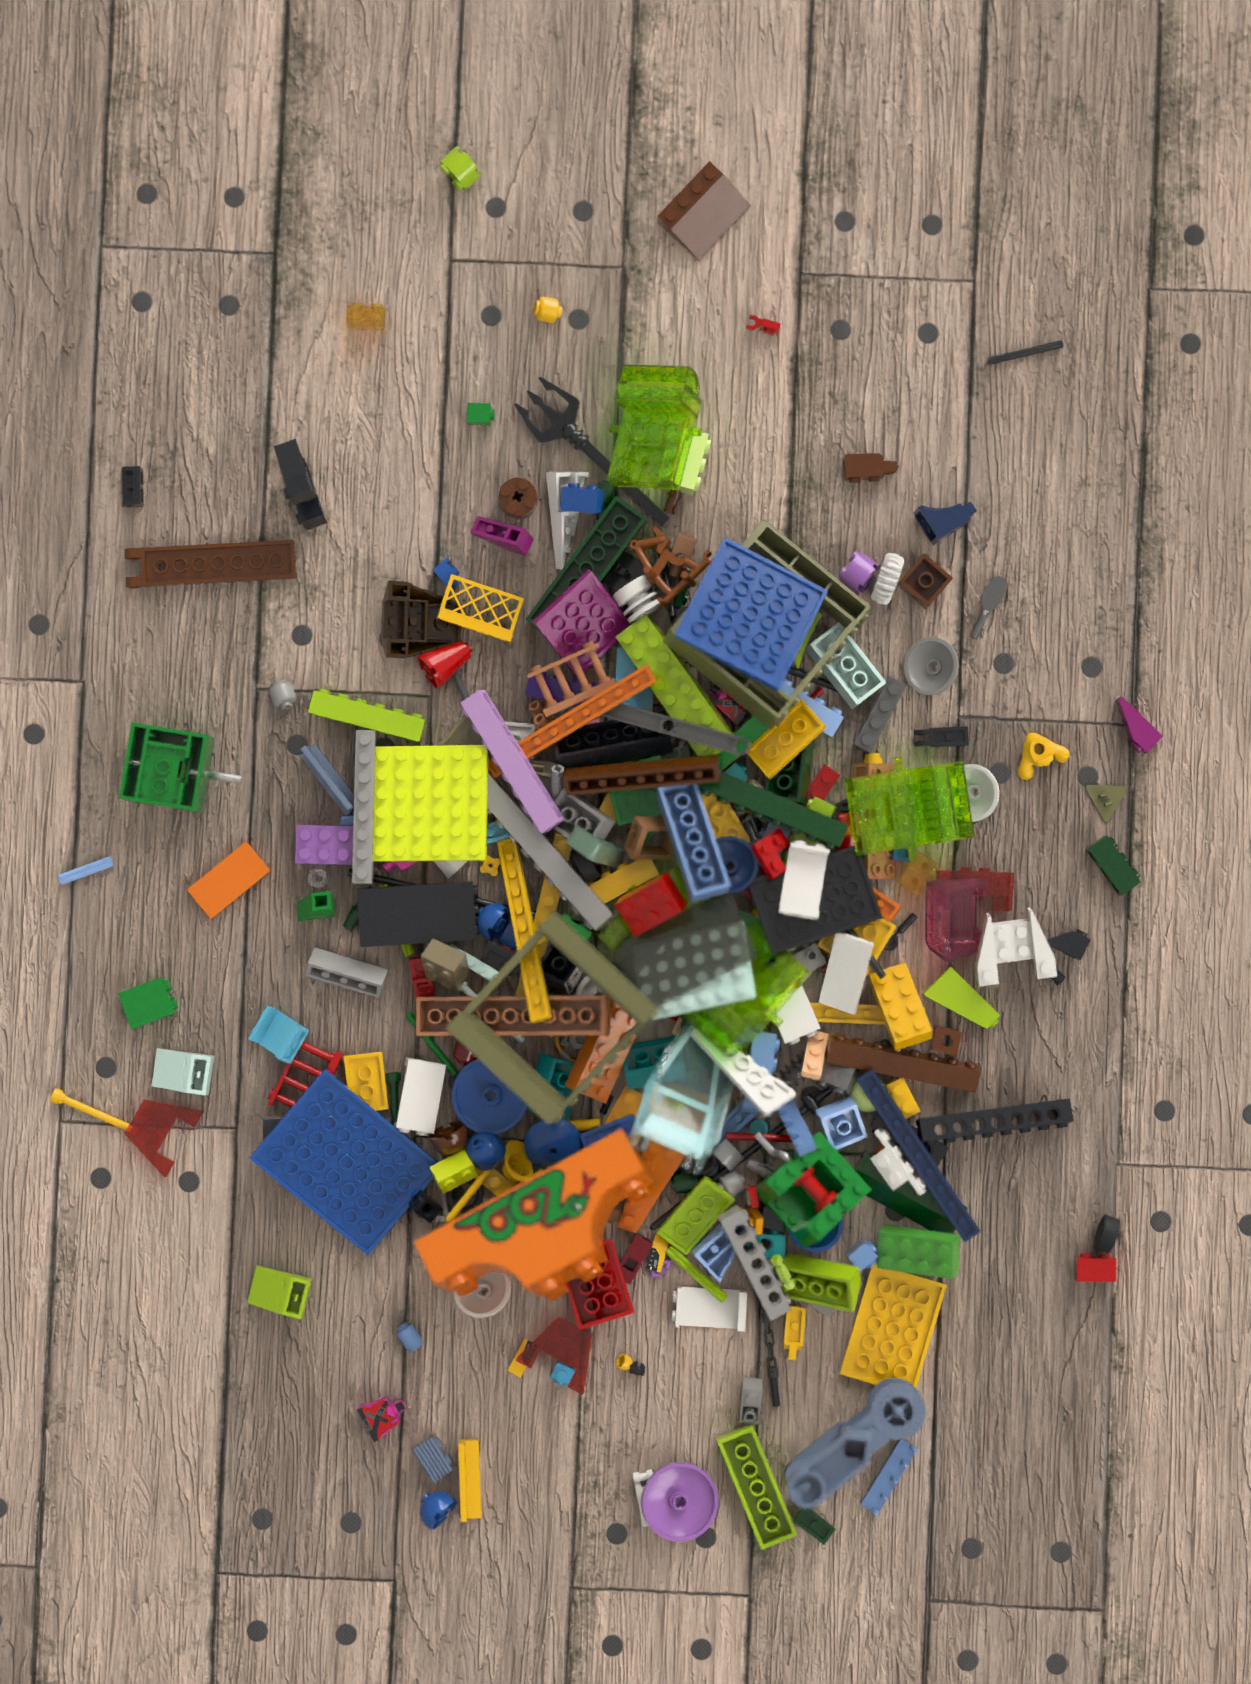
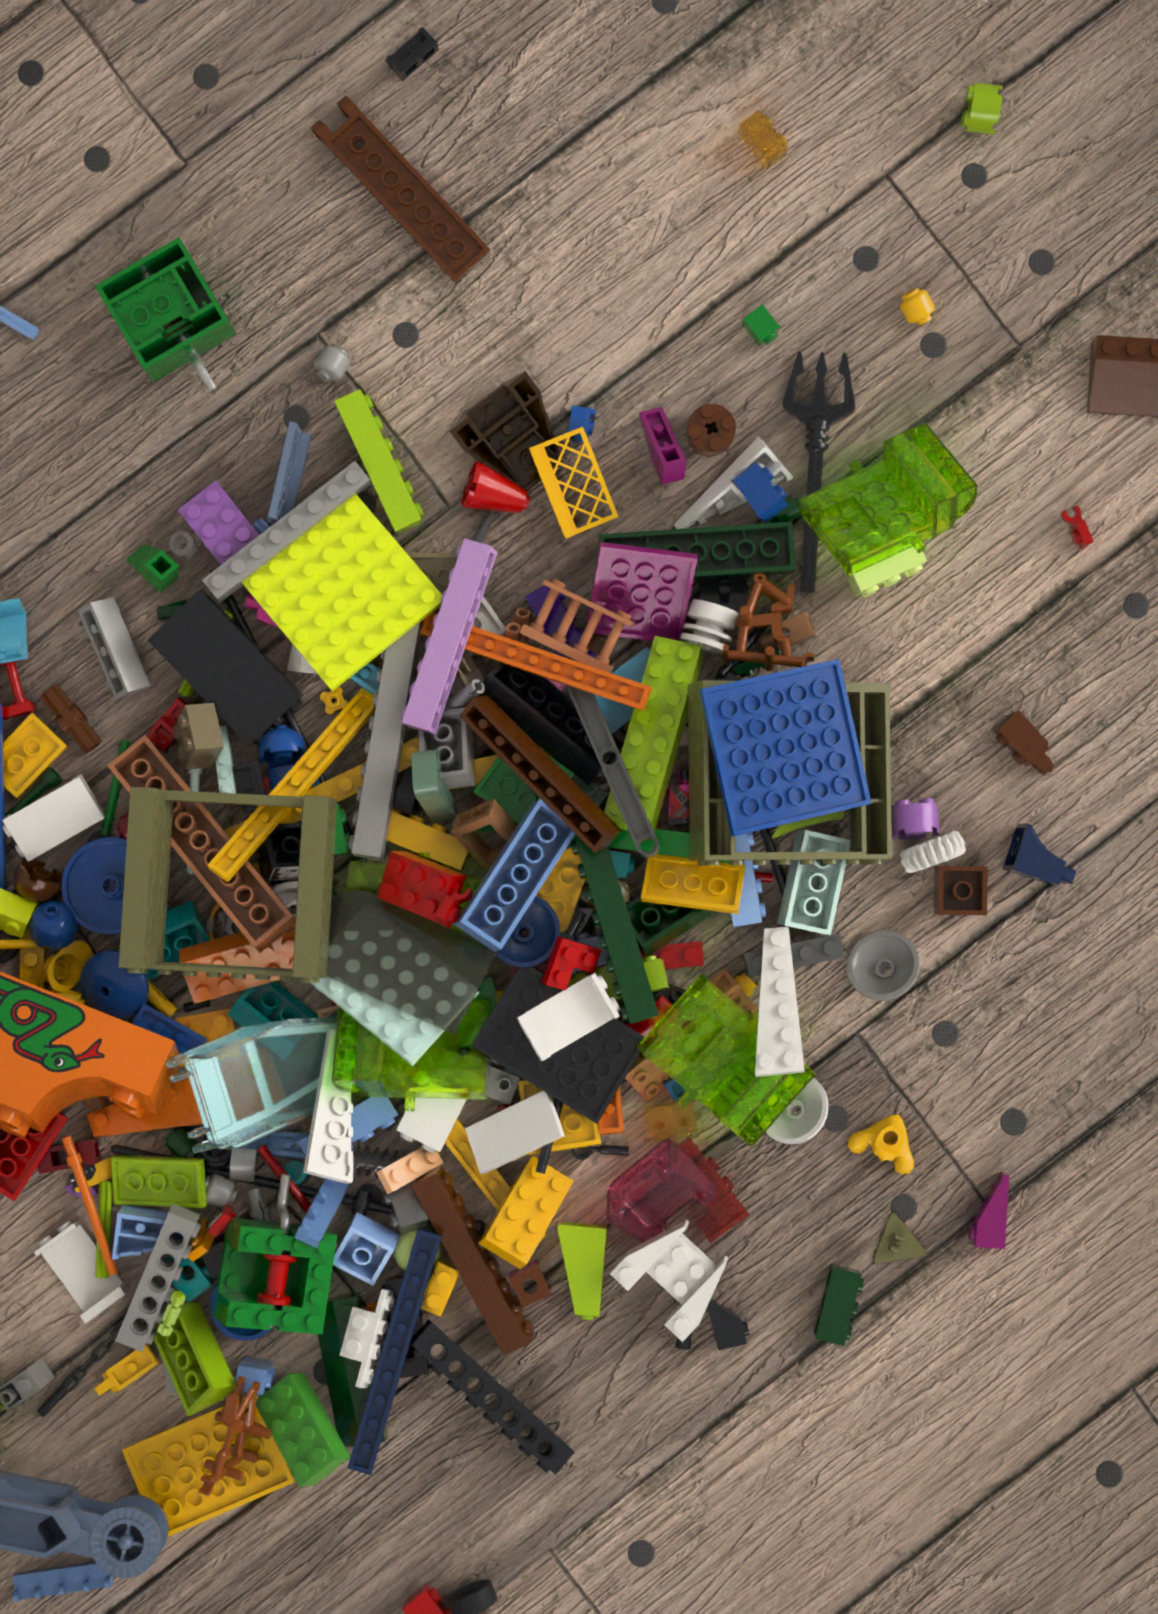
camera: 45 degrees right, 0 degrees up
(228, 880) = (111, 461): orange tile -> none
(299, 485) = (546, 208): black wedge -> none
(367, 1035) = (71, 718): none -> reddish brown piece
(640, 1255) = (74, 1160): none -> orange bar
(672, 501) = (832, 581): reddish brown pin -> none
(680, 897) = (450, 907): none -> red plate
(883, 1283) = (240, 1422): none -> dark orange piece
(913, 757) = (778, 1021): none -> white wing
(943, 737) = (826, 1036): black hinge -> none
(991, 599) = (997, 969): dark grey piece -> none

